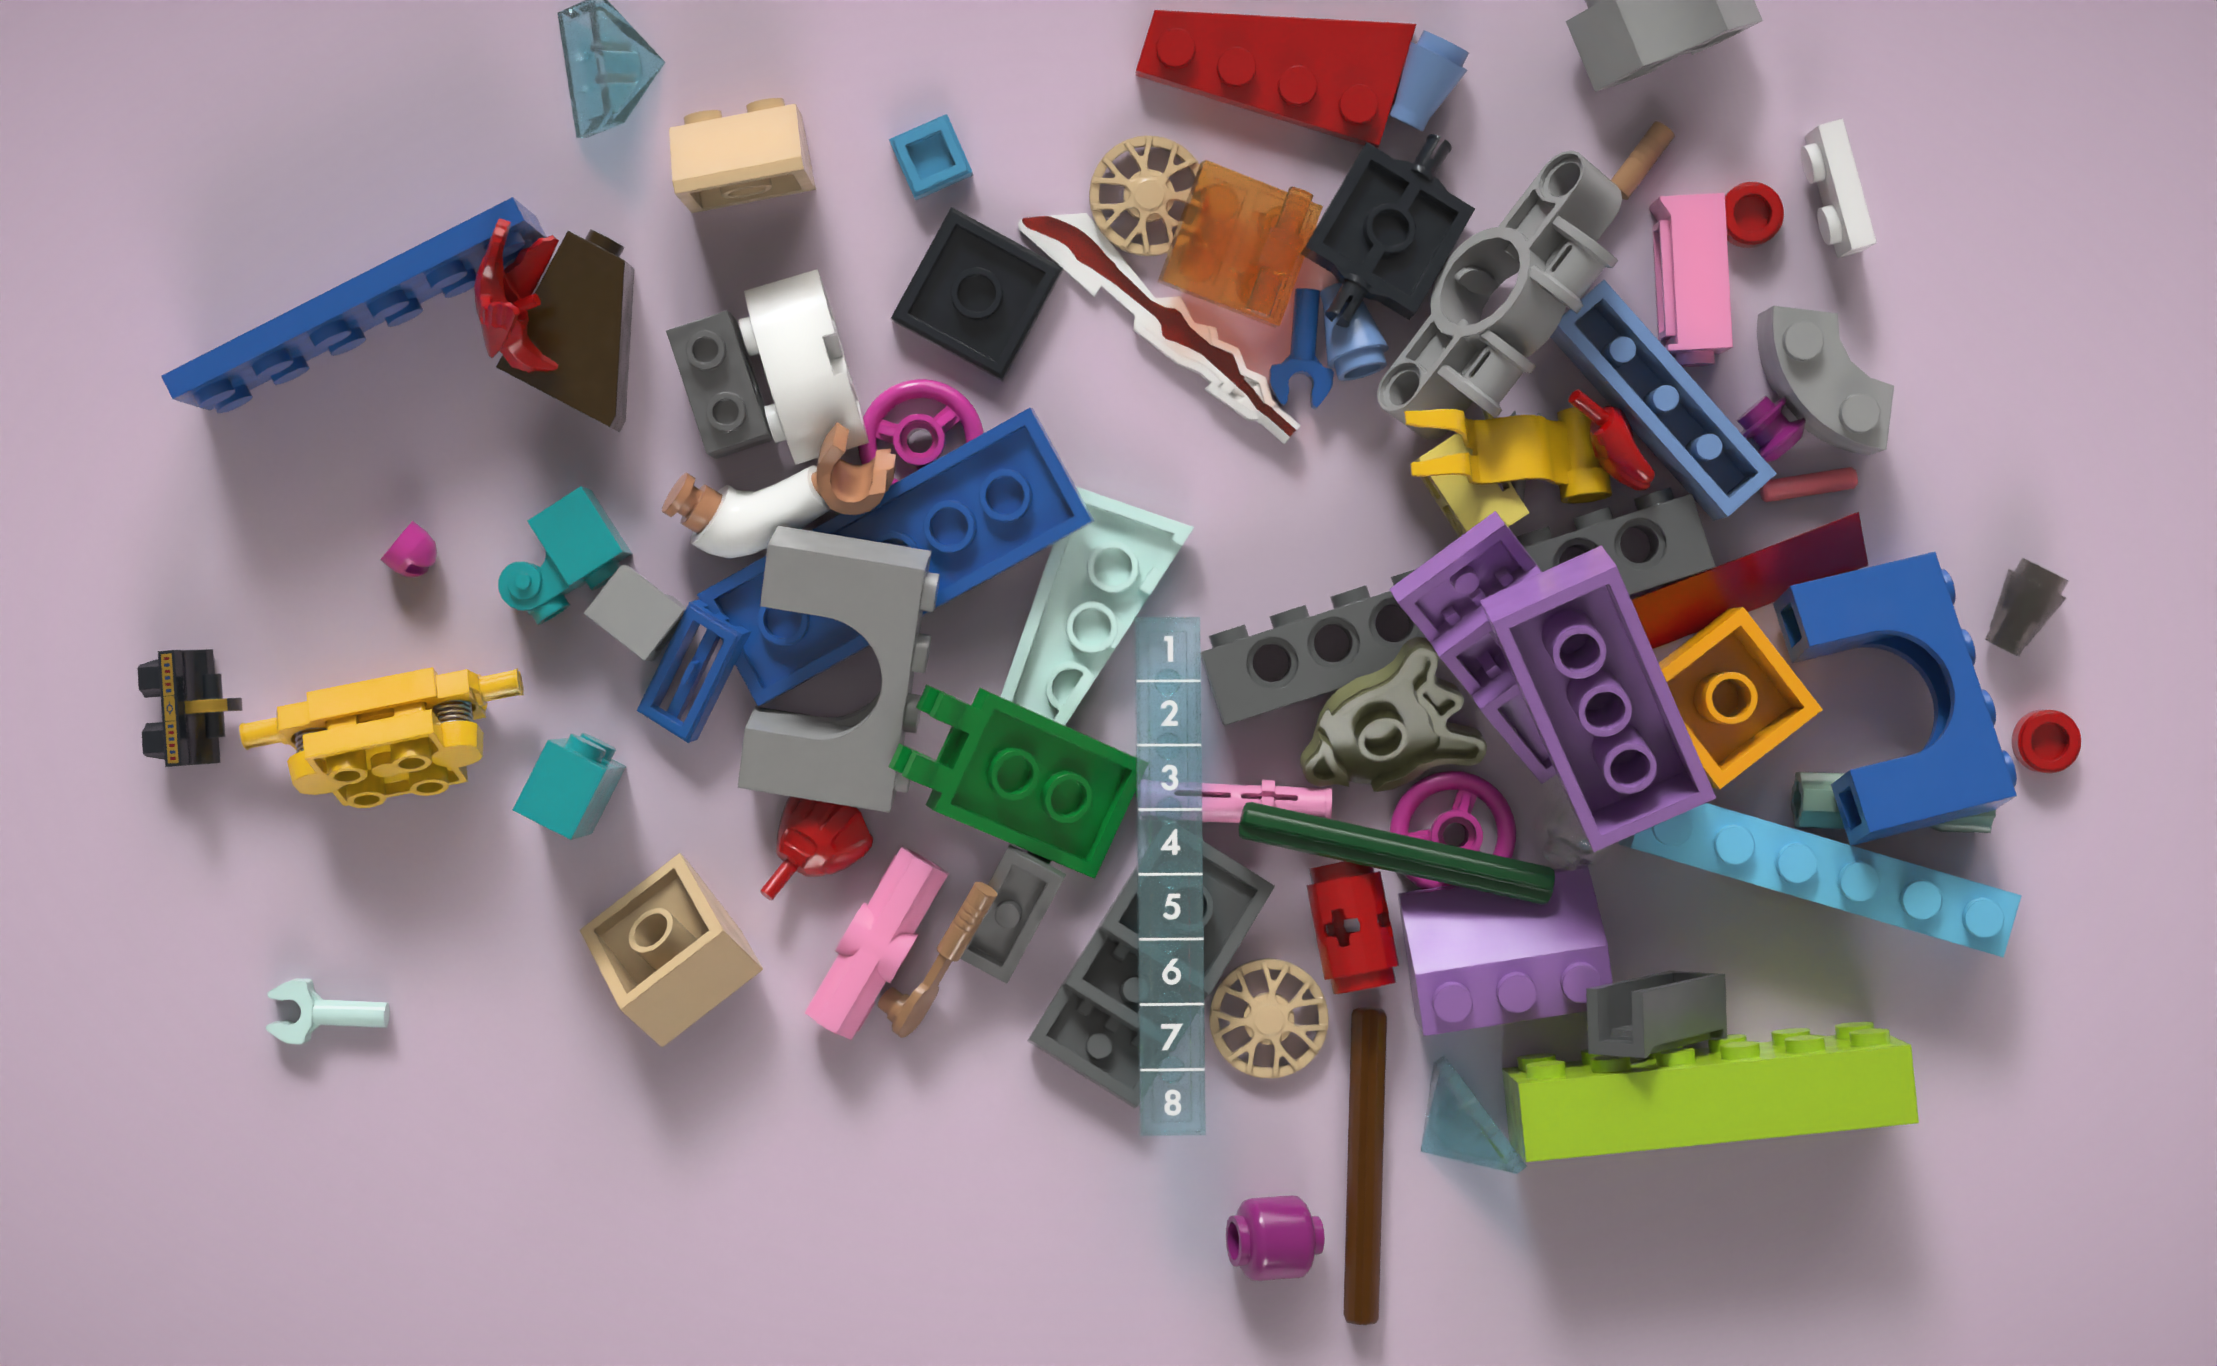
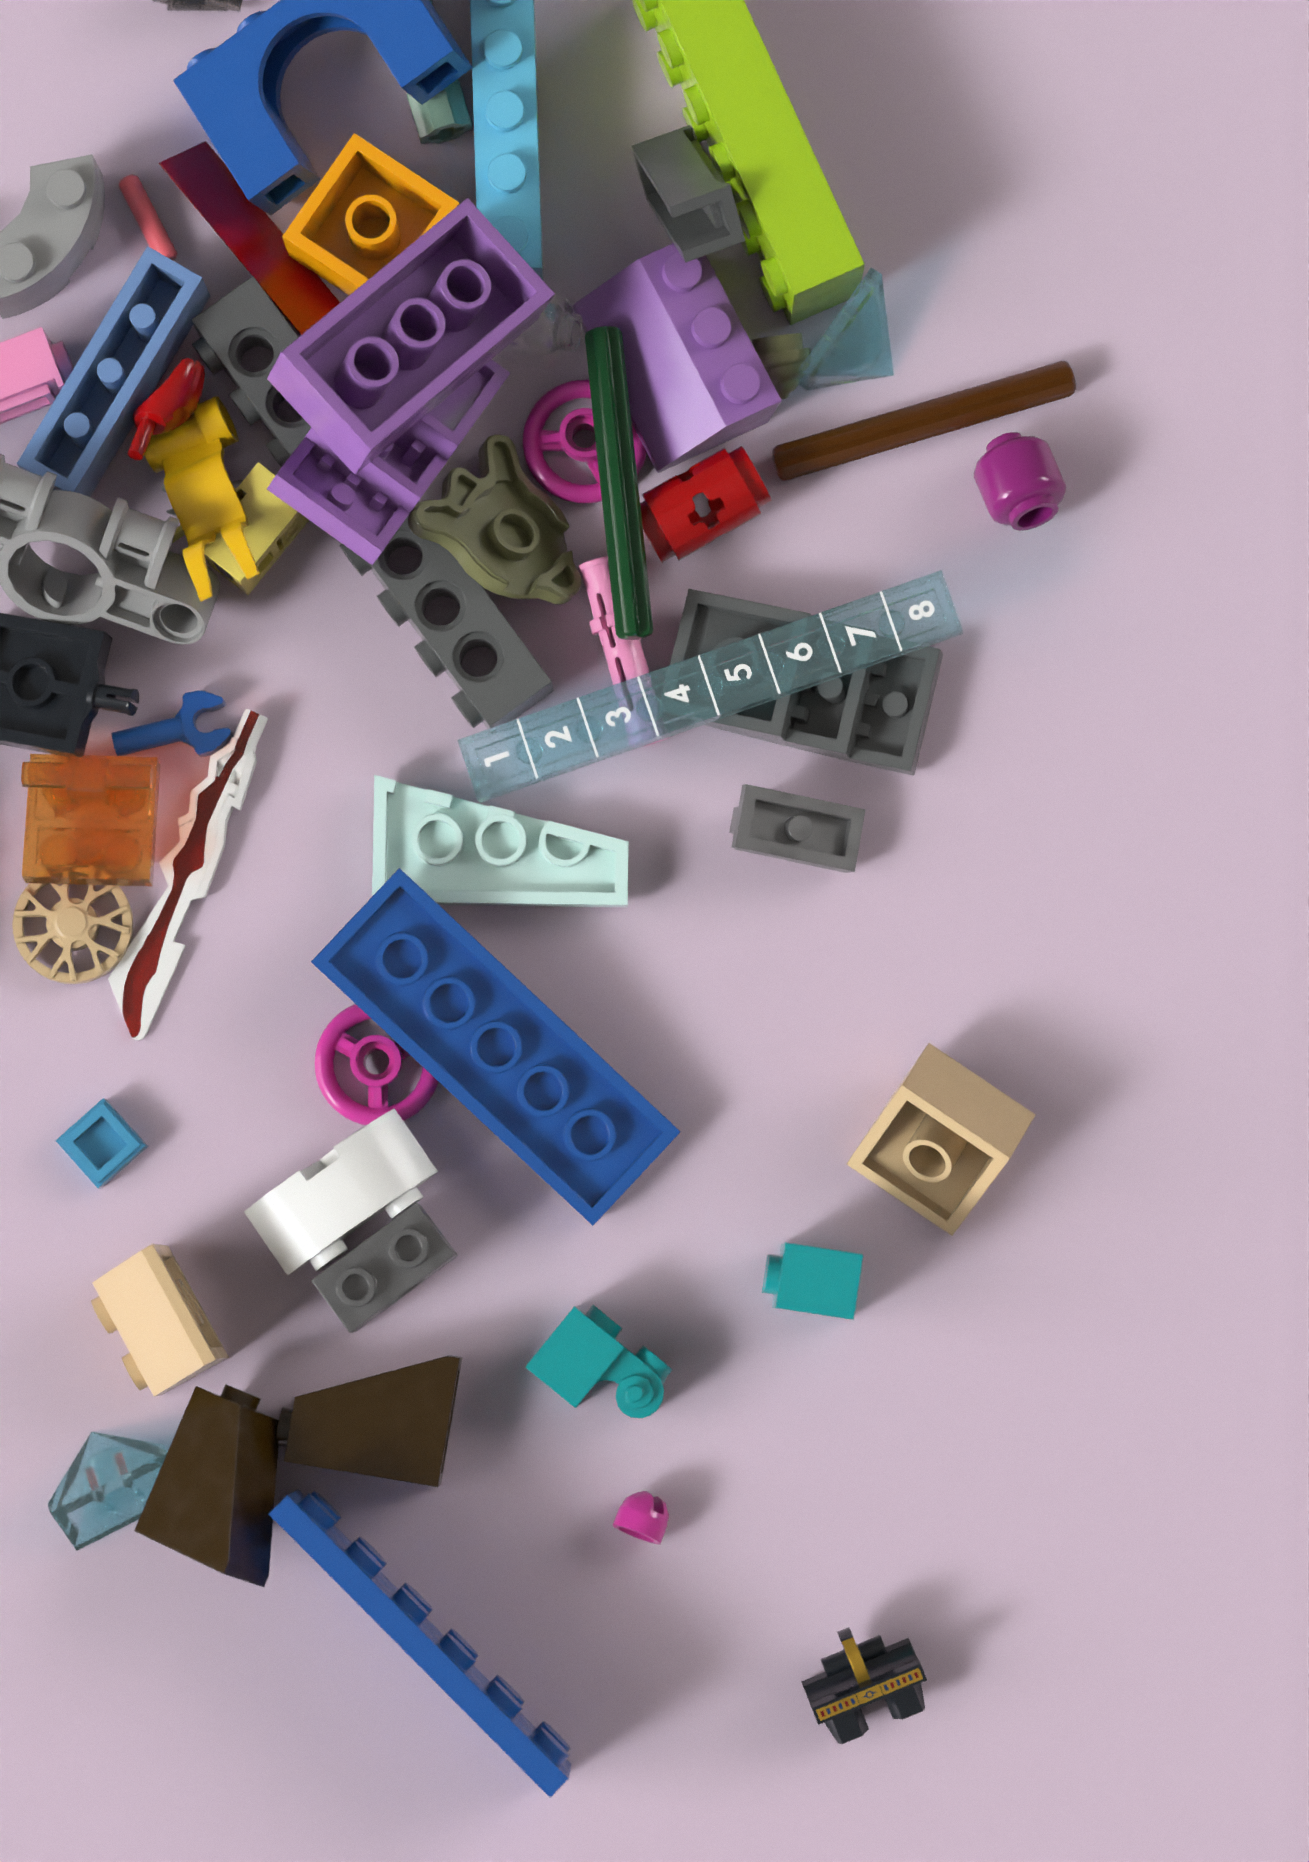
camera: 110 degrees left, 5 degrees down
(322, 1012) = (1114, 1456): light aqua bar -> none
(385, 734) = (825, 1479): yellow piece -> none
(505, 297) = (377, 1496): red animal -> none
(563, 161) = (218, 1486): none -> dark brown slope
(636, 613) = (628, 1276): light grey panel -> none
(717, 628) = (617, 1194): blue tile -> none
(743, 522) = (507, 1198): piece -> none
(817, 841) = (786, 1036): red piece -> none
(876, 943) = (868, 945): bright pink piece -> none
(881, 596) = (692, 1017): light grey arch -> none
(909, 1010) = (923, 895): medium nougat piece -> none
(977, 294) = (219, 1056): black tile -> none
(1023, 778) = (664, 854): green tile -> none
(1268, 1018) = (815, 554): tan wheel -> none
(1355, 349) = (156, 678): medium blue cone -> none
(1467, 1050) = (792, 353): none -> olive plate
(1771, 428) = (106, 269): magenta wheel -> none

